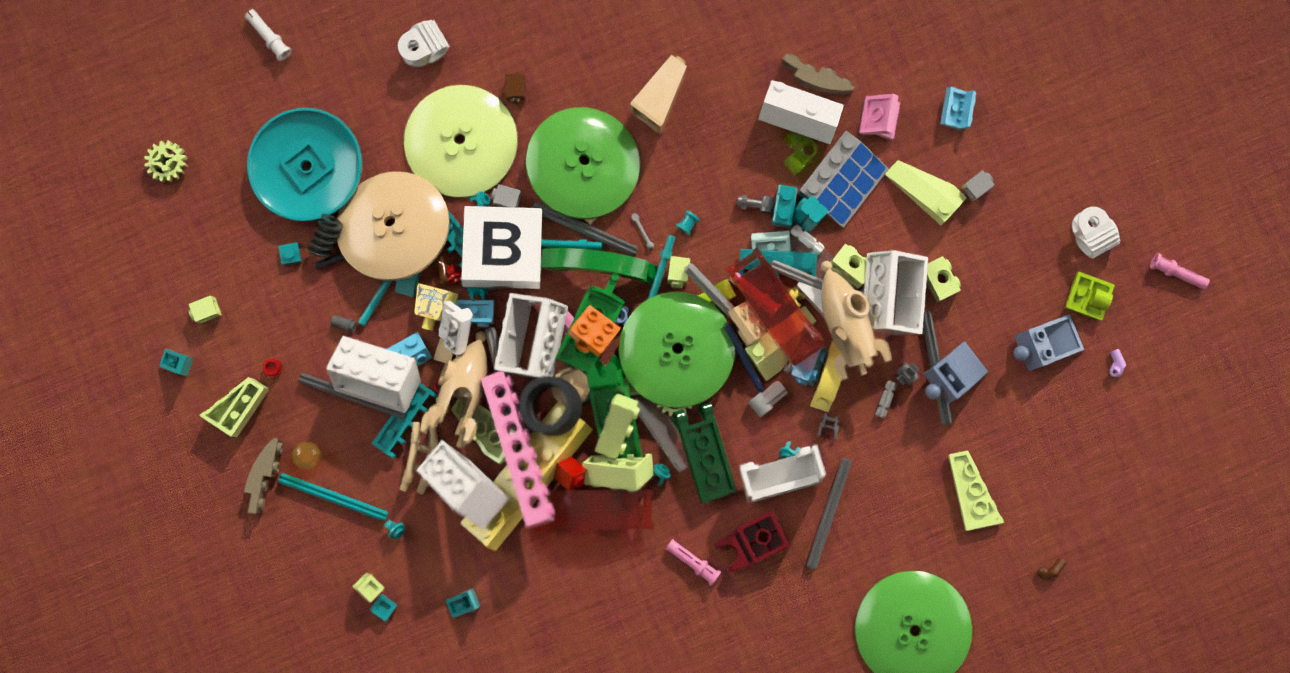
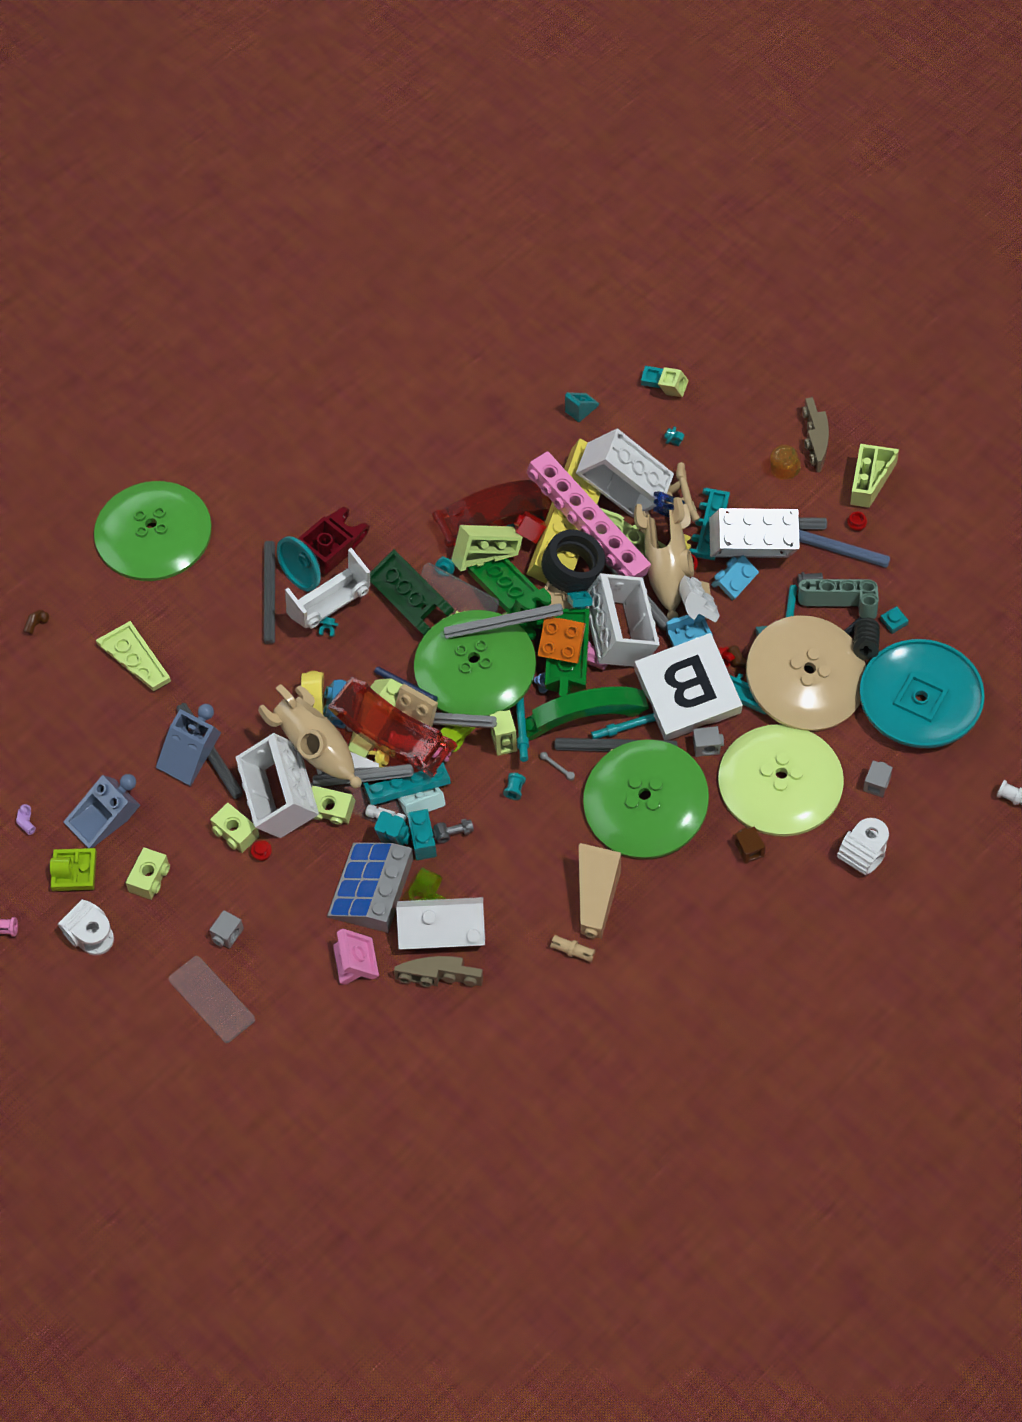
camera: 160 degrees right, 25 degrees down
(176, 362) = (948, 491): teal slope -> none
(204, 309) = (947, 542): yellowish green brick -> none
(296, 342) = (844, 548): none -> sand blue axle
(327, 292) = (841, 593): none -> sand green beam
(333, 497) = (742, 442): teal axle -> none
(380, 104) = (878, 778): none -> light grey brick
(430, 304) = (733, 623): light yellow torso -> none
(431, 440) = (662, 507): none -> clear blue tile
(482, 199) = (730, 730): teal plate -> none
(560, 368) = (579, 599): none -> teal plate
(617, 426) = (502, 574): yellowish green wedge -> none
(639, 365) = (503, 621): none -> light grey axle
(699, 56) = (572, 948): none -> tan pin
(701, 567) = (375, 506): bright pink pin -> none
(764, 401) = (370, 658): light grey piece -> none
(793, 520) = (299, 563): none -> teal dish
(835, 427) = (300, 669): flat silver piece -> none
(886, 399) = (250, 705): light grey axle -> none
(907, 373) = (236, 731): dark grey gear -> none
(924, 249) = (261, 850): none -> red plate
(929, 192) = (270, 904): yellowish green wedge -> none
(958, 108) = (275, 997): medium azure bracket -> none
(1008, 133) = (211, 999): none -> clear piece
(1037, 259) = (148, 862): none -> yellowish green brick

